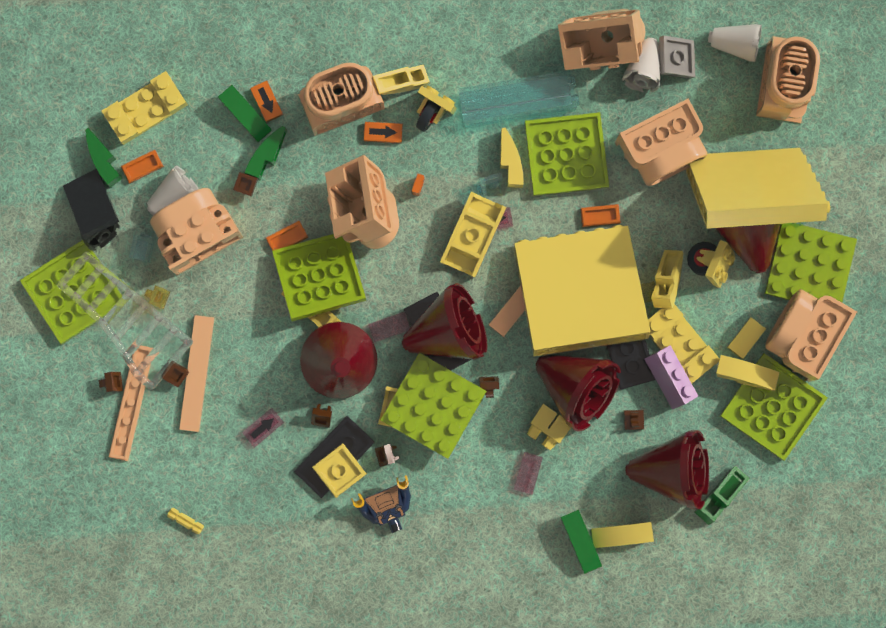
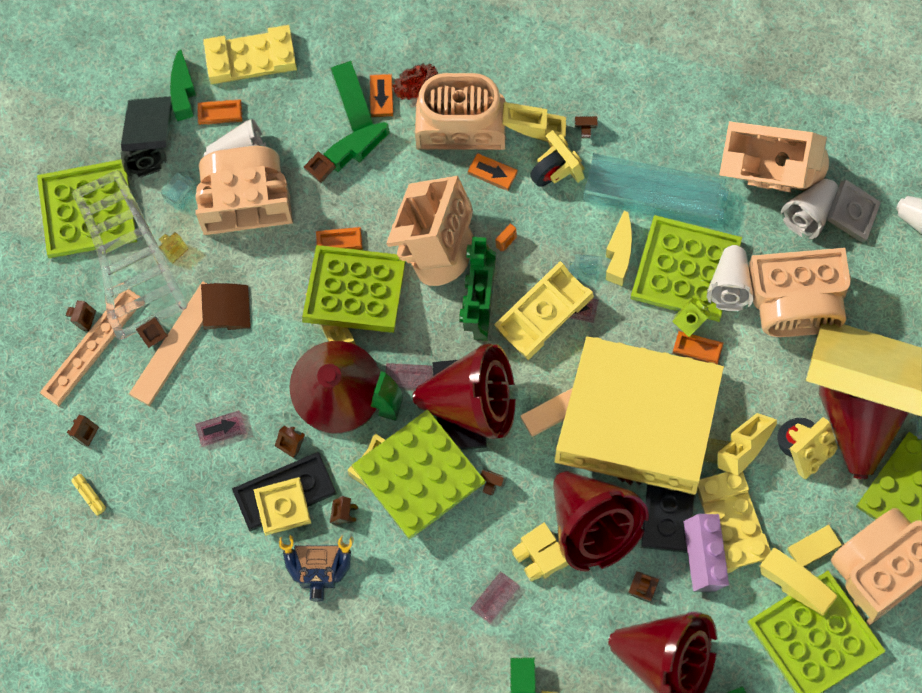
camera: 30 degrees right, 15 degrees down
(157, 473) = (83, 430): none -> reddish brown tile
(222, 328) = (225, 306): none -> reddish brown slope
(291, 80) = (412, 80): none -> clear red gear
(383, 355) = (387, 397): none -> green slope
(417, 238) = (477, 303): none -> green bracket
(441, 63) = (586, 124): none -> reddish brown tile
(588, 194) = (691, 316): none -> lime brick
(608, 154) = (731, 282): none -> white cone

